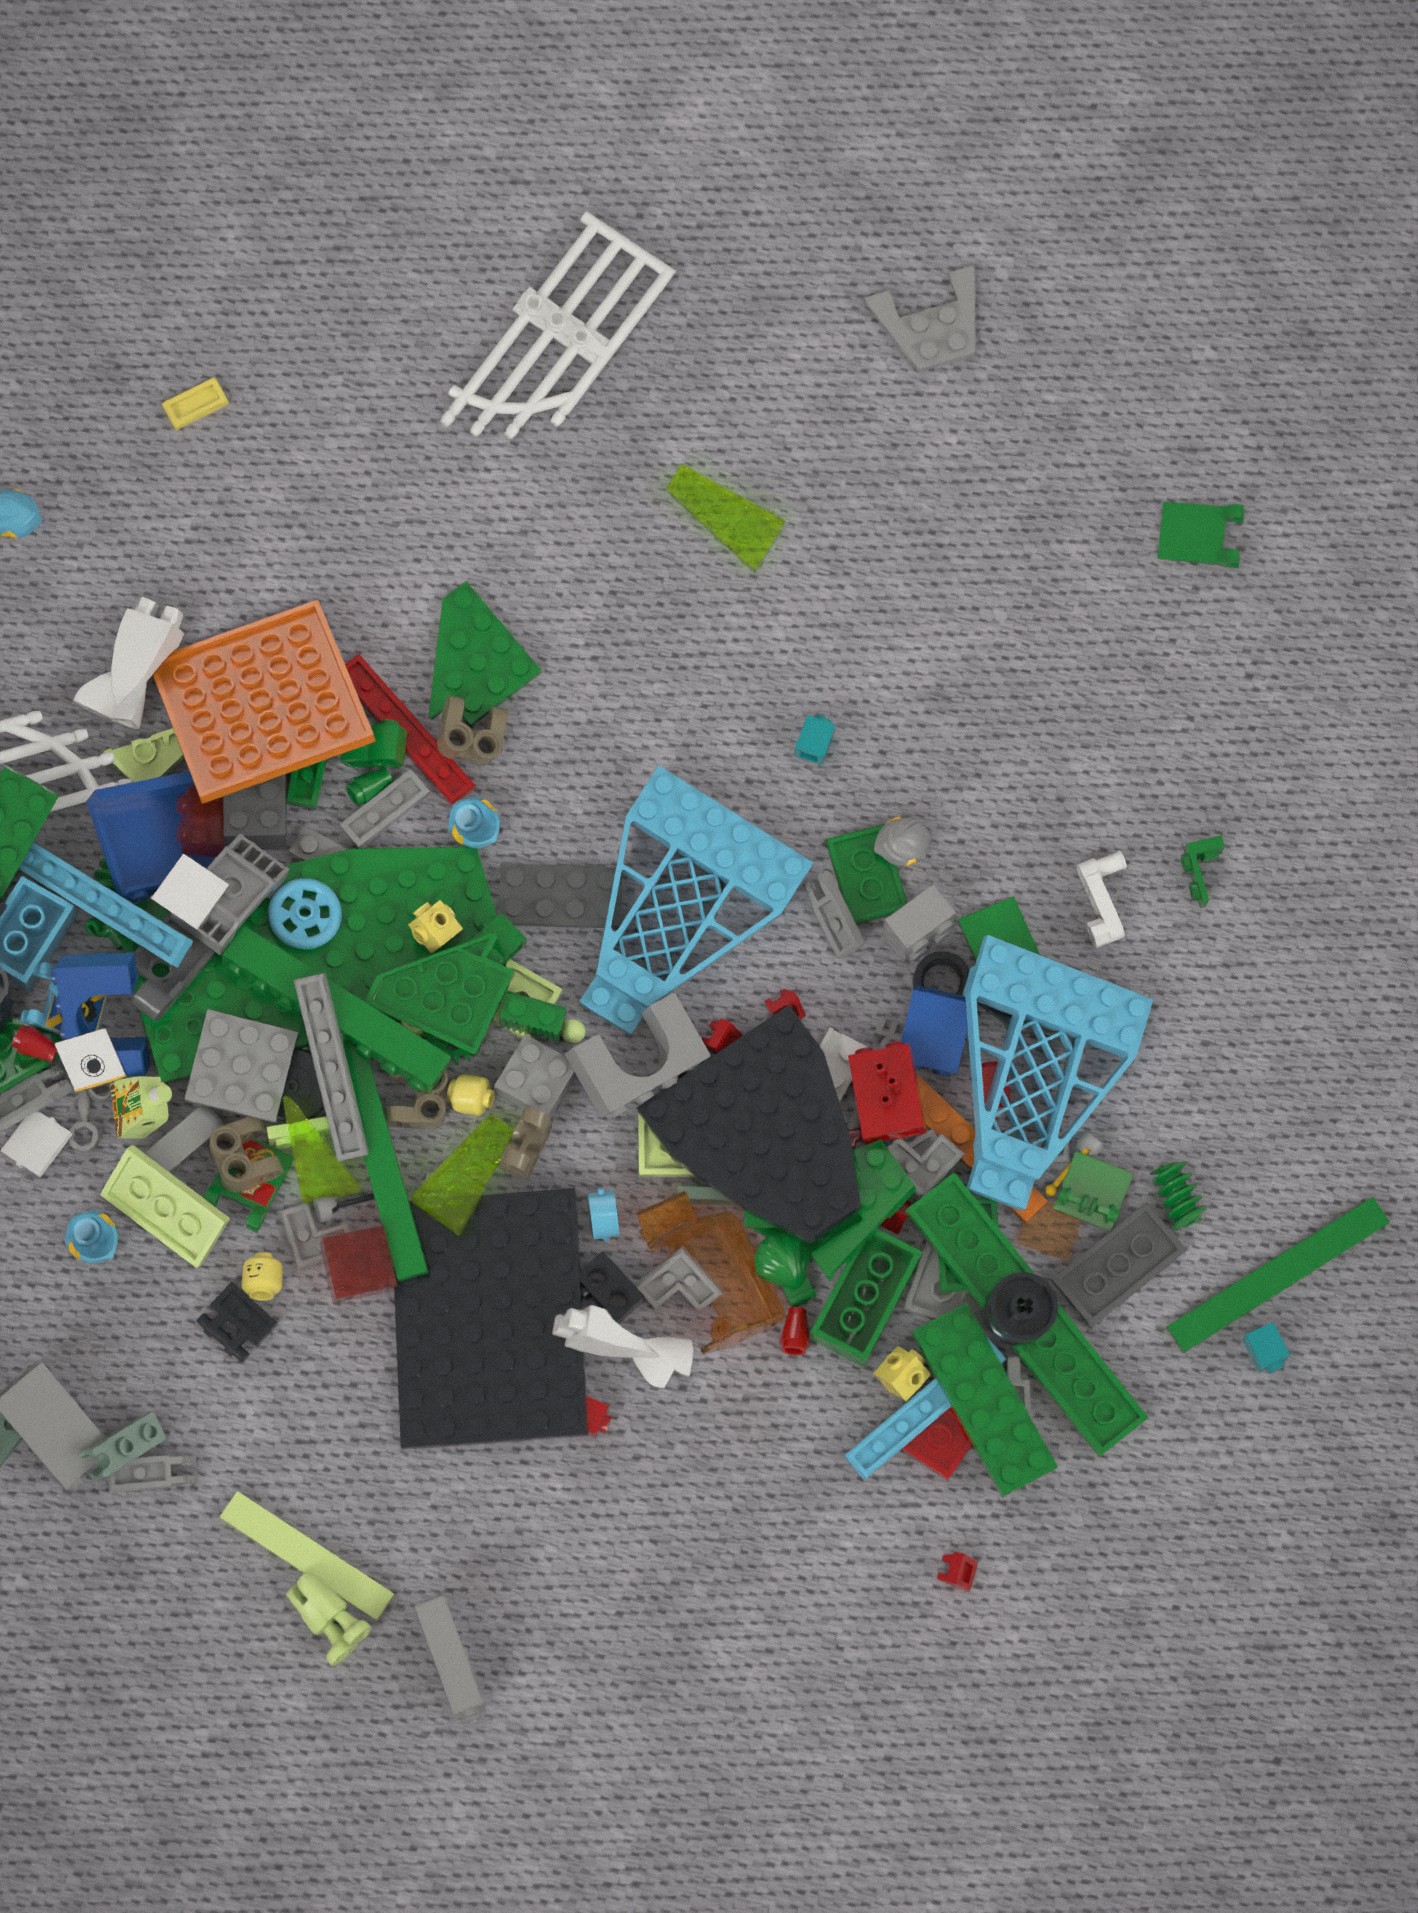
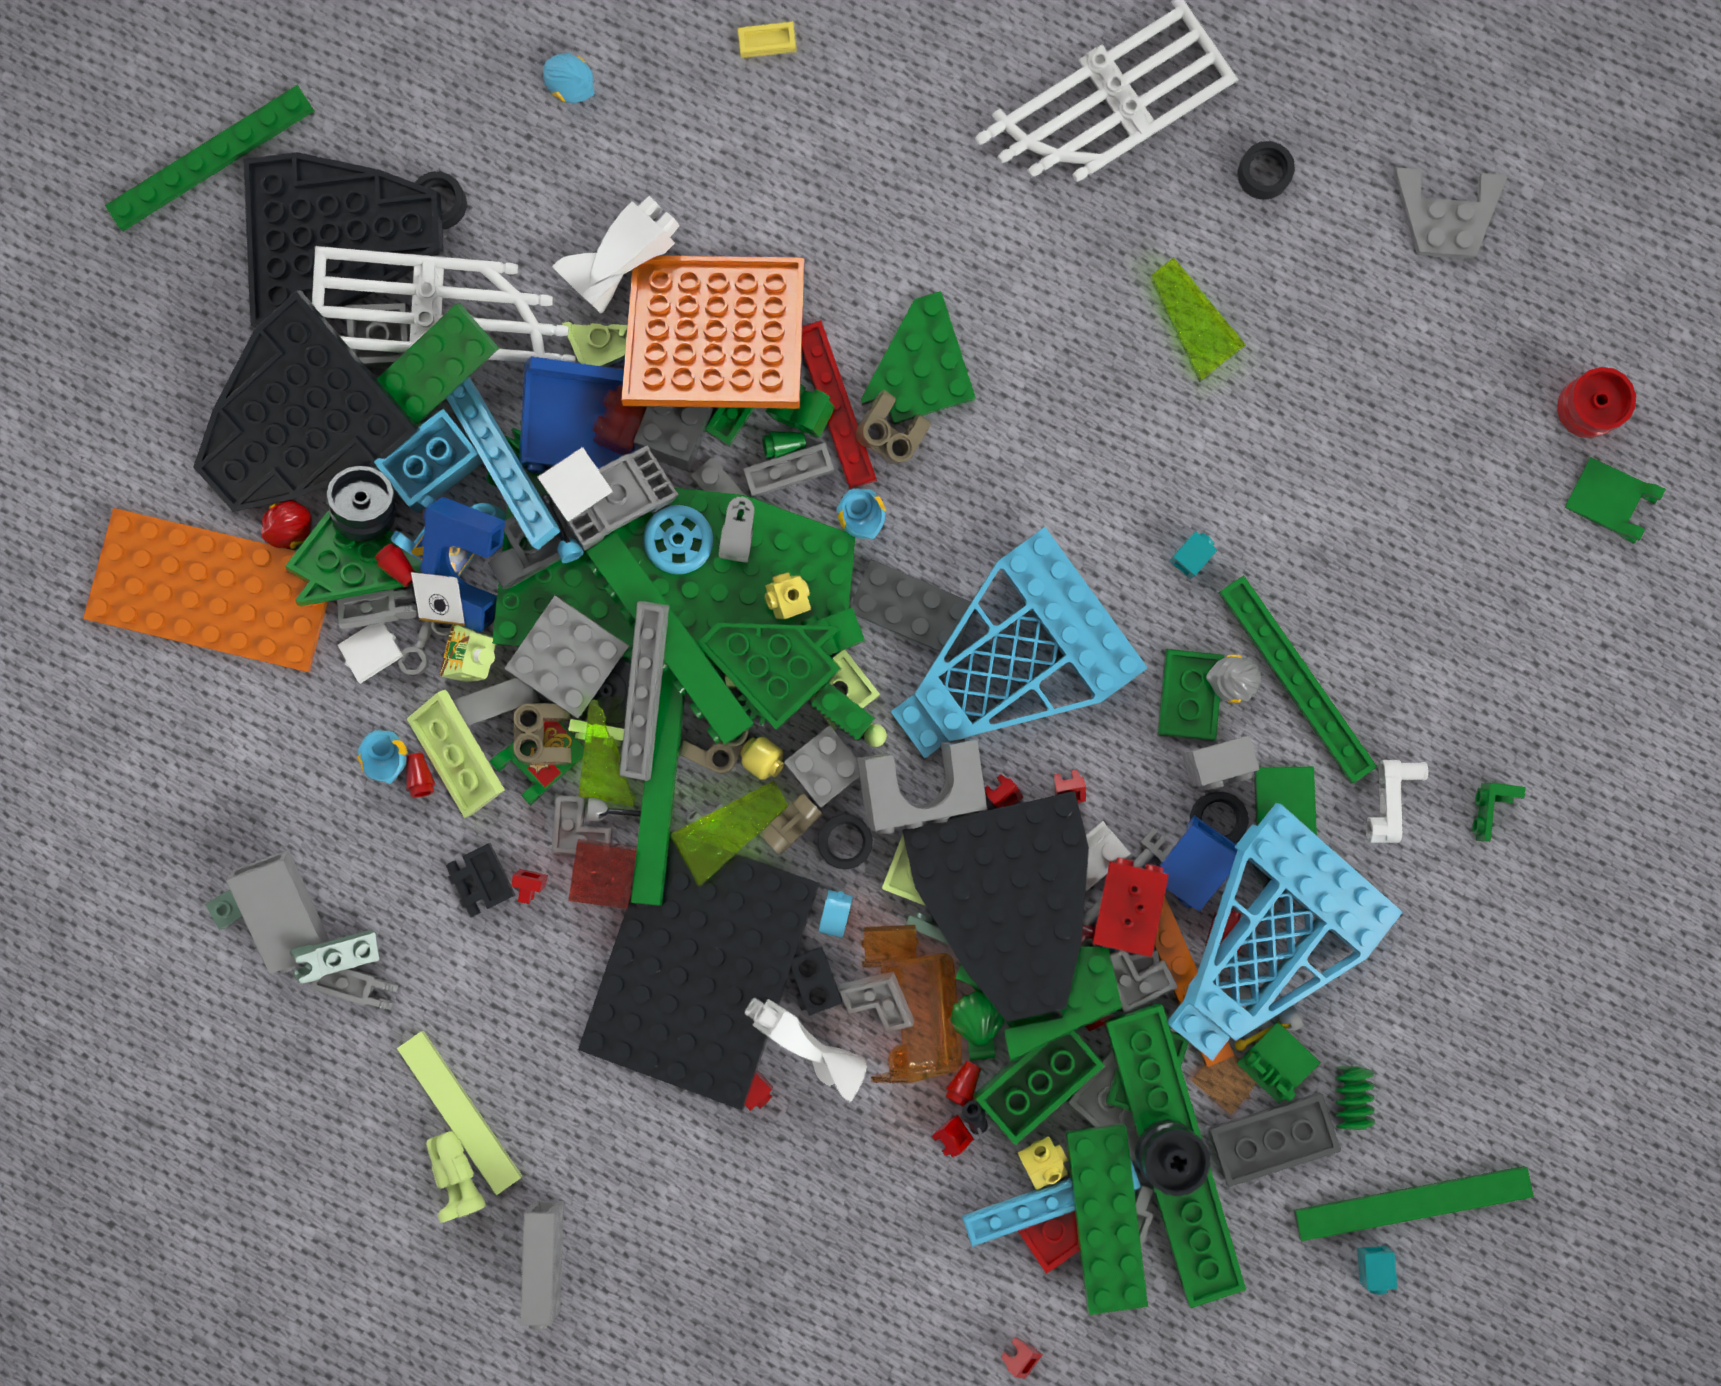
camera: 25 degrees right, 10 degrees up
(135, 1245) = (418, 776): none -> red cone
(204, 957) = (568, 548): none -> medium azure hinge
(262, 1276) = (516, 850): light yellow head -> none
(288, 1305) = (528, 884): none -> red tile
(362, 882) = (737, 535): none -> light grey piece
(569, 1126) = (824, 834): none -> black tyre
(738, 369) = (1273, 150): none -> black tyre
(805, 1383) = (954, 1136): none -> red tile
(816, 1352) = (975, 1117): none -> black pin
(834, 915) = (1147, 720): light grey hinge -> none
(964, 819) = (1297, 679): none -> green plate
(1159, 451) = (1596, 402): none -> red wheel

